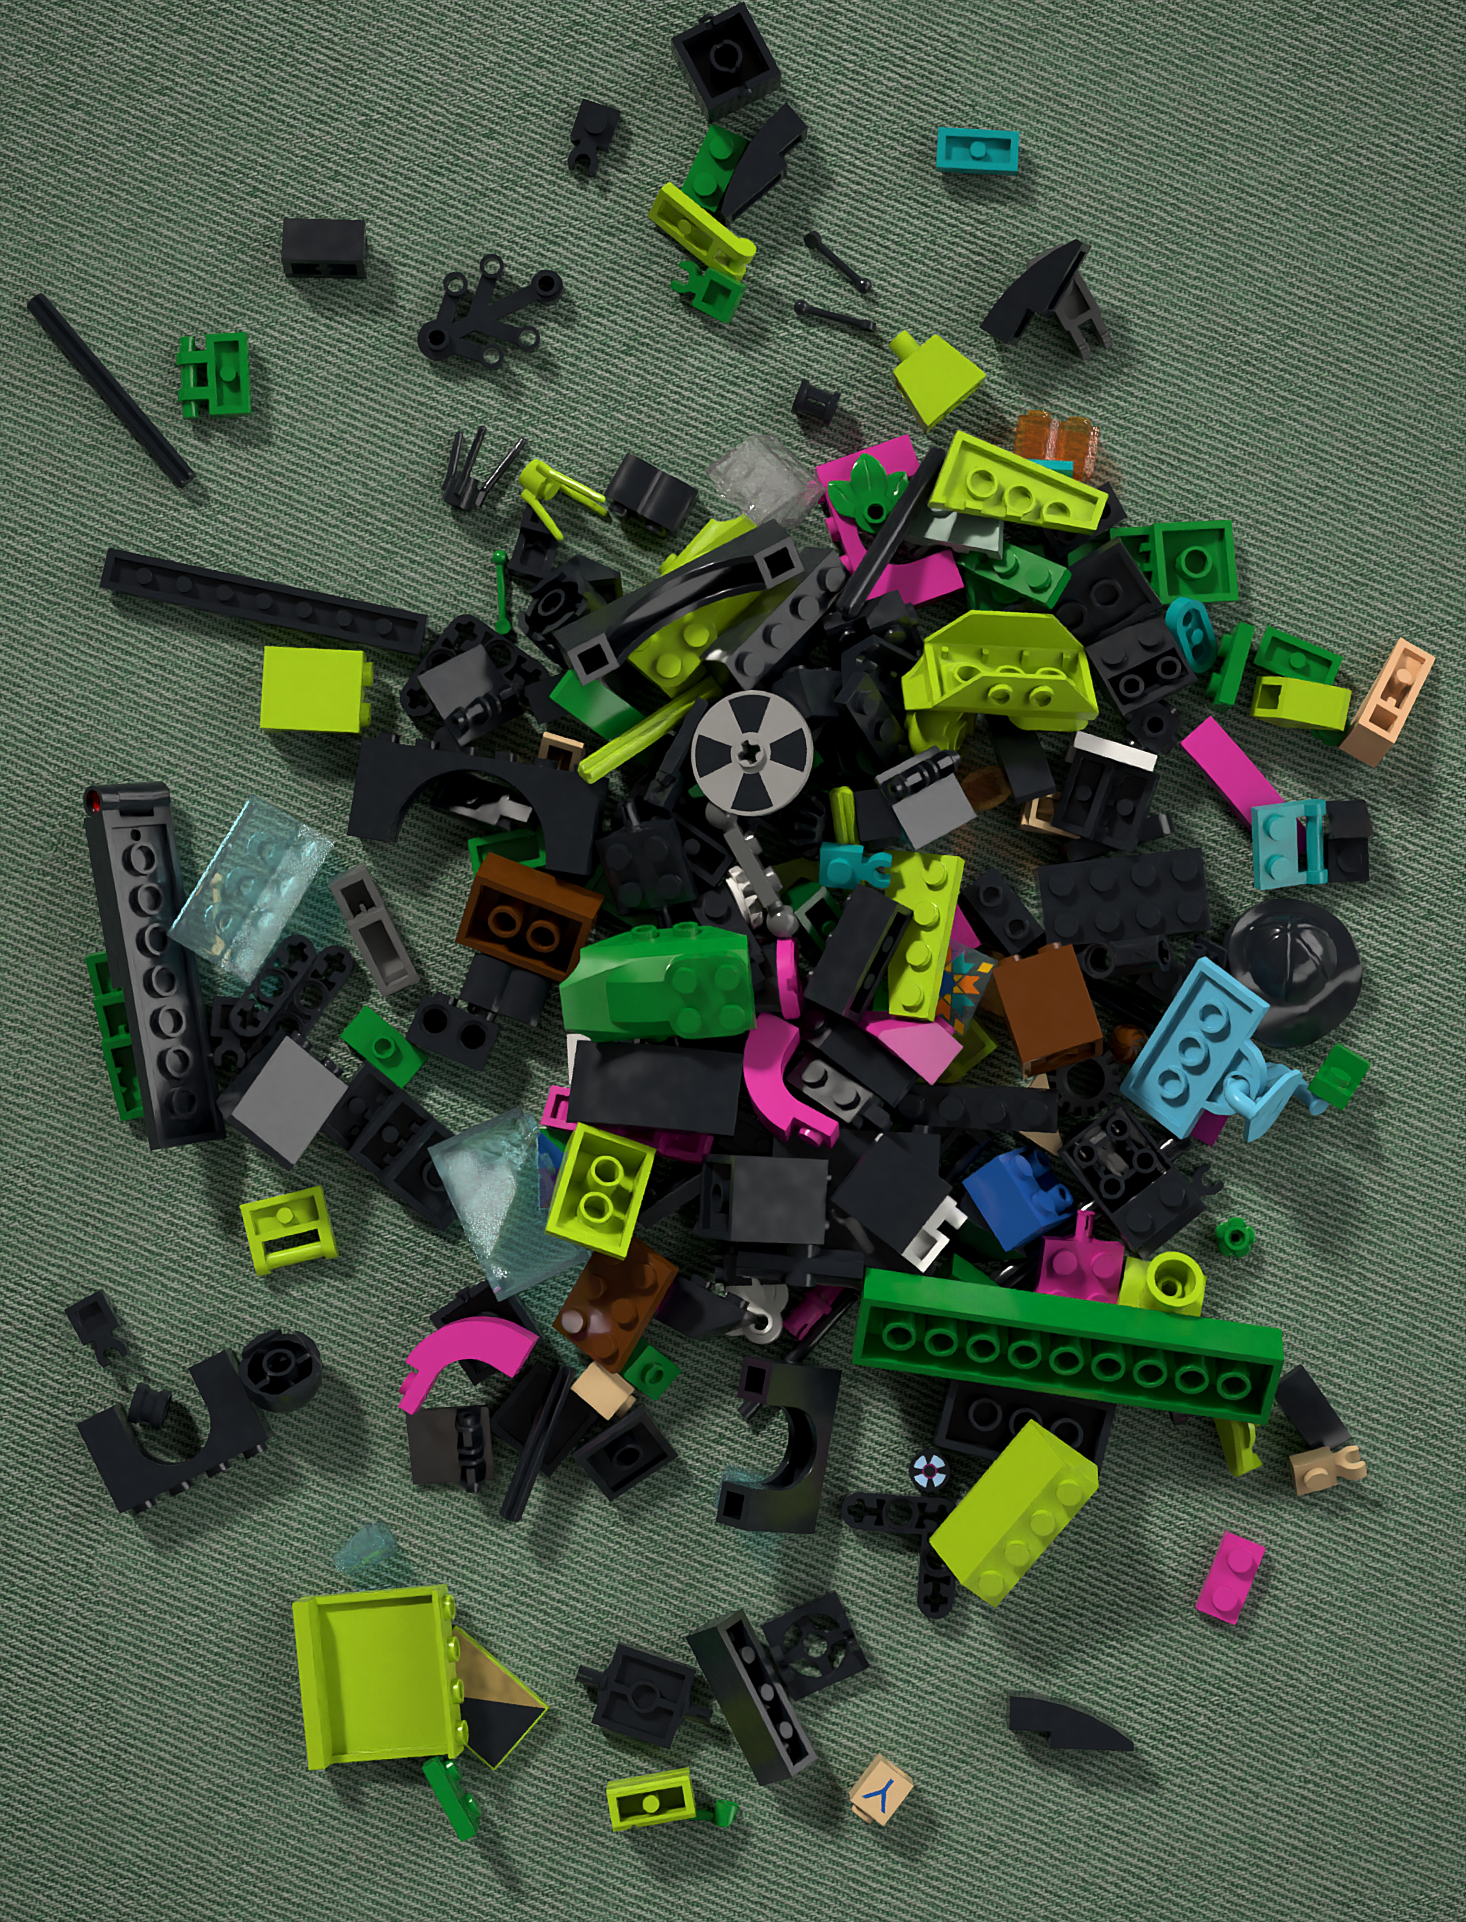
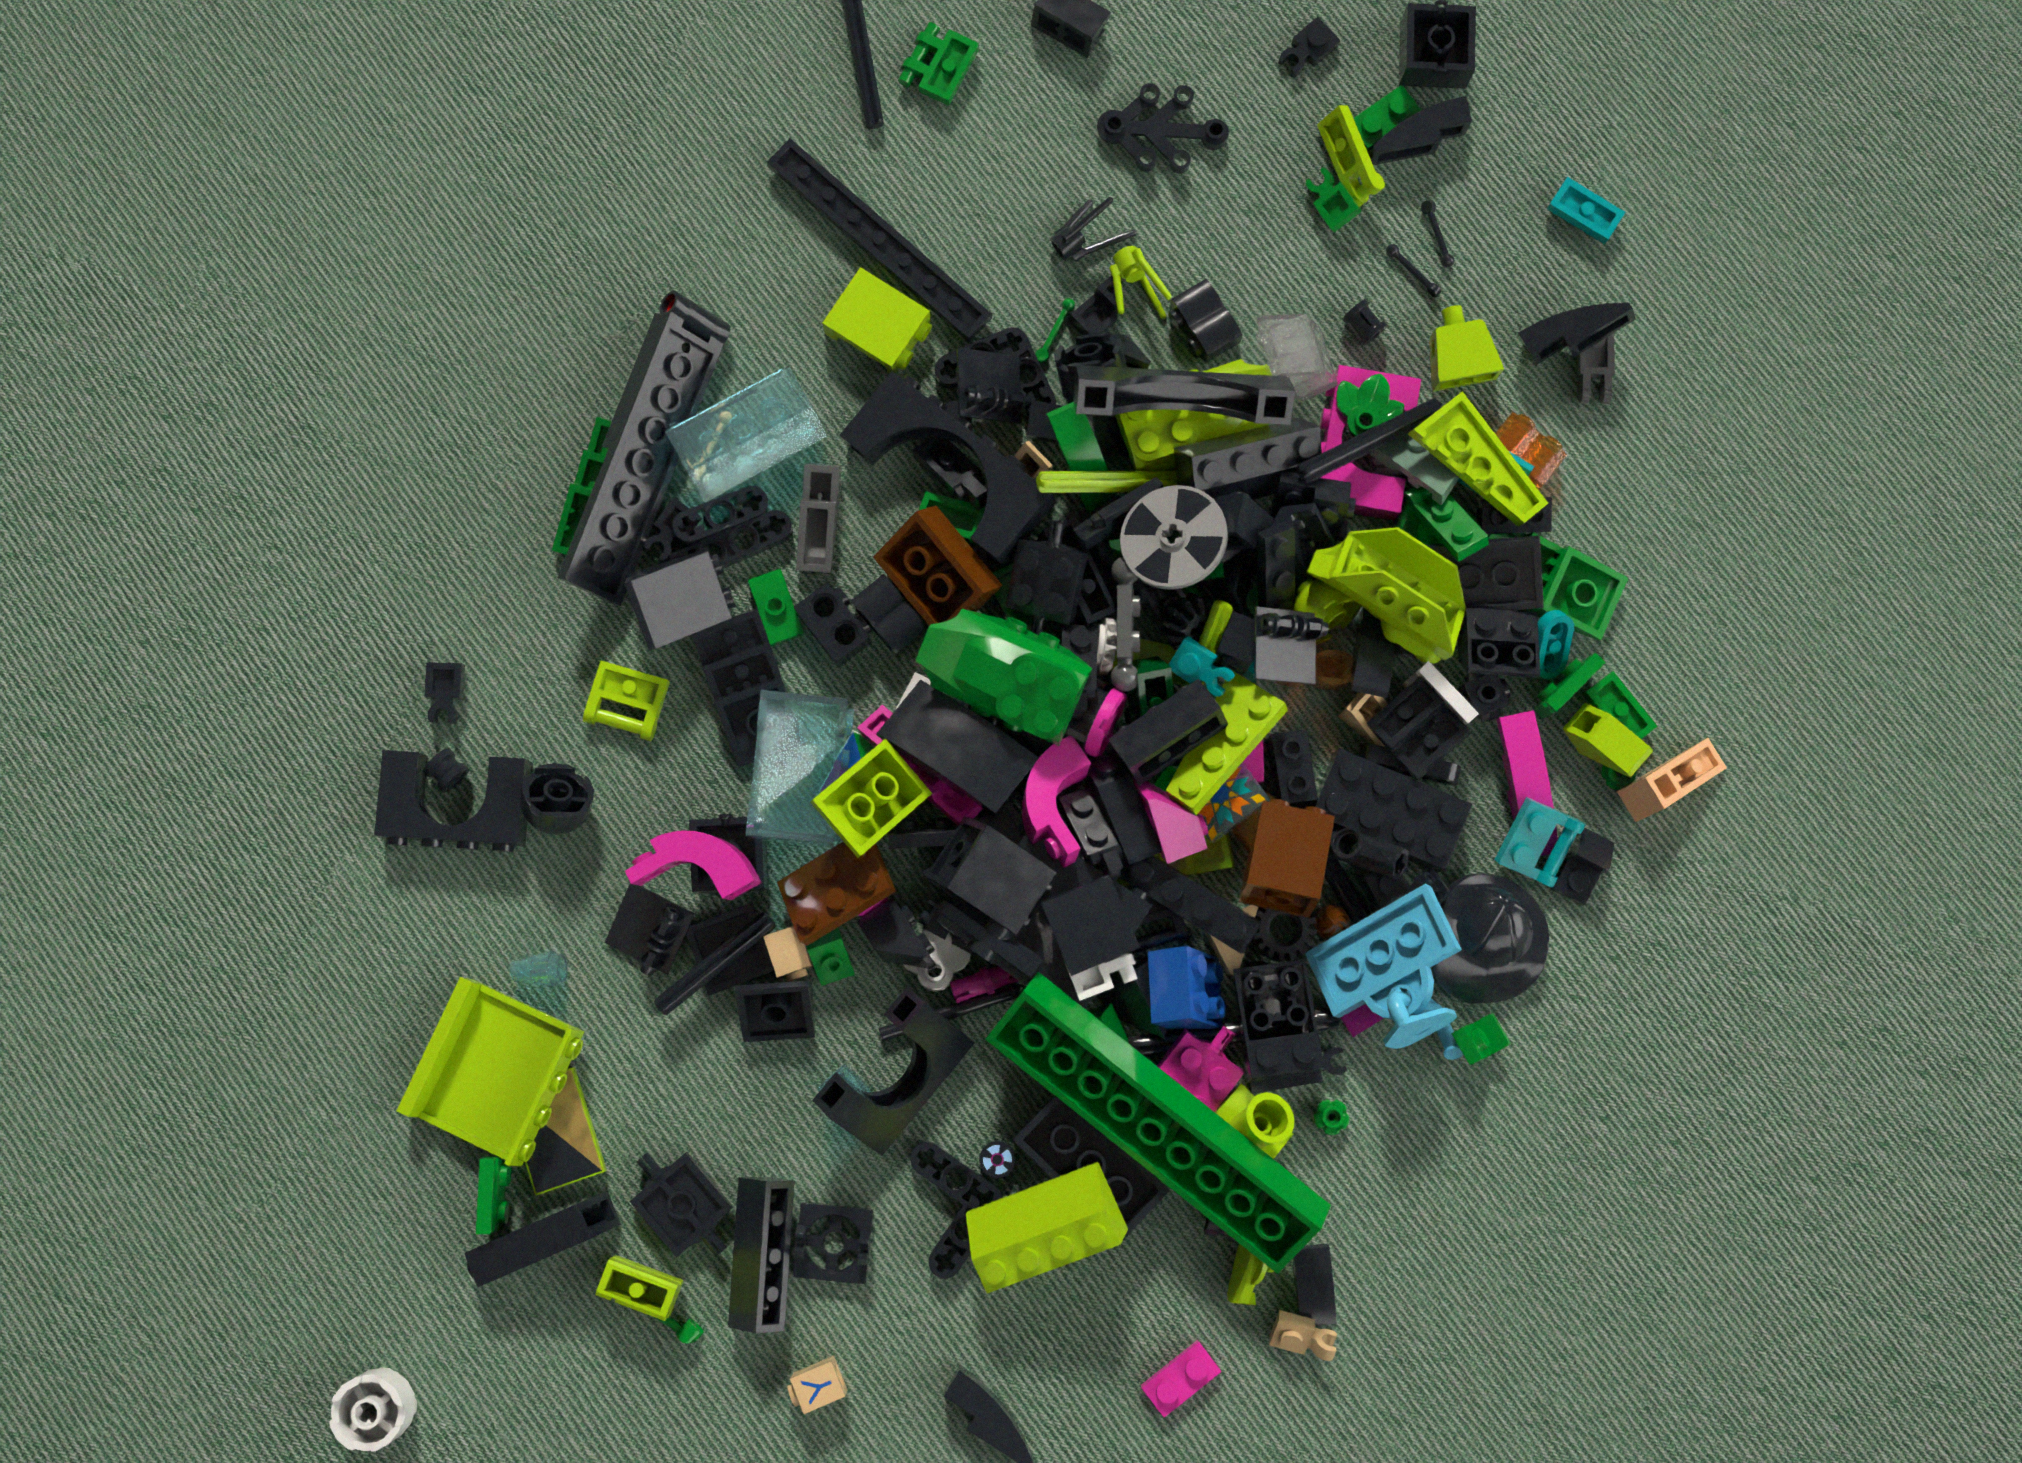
camera: 30 degrees right, 5 degrees down
(527, 1808) = (542, 1239): none -> black slope

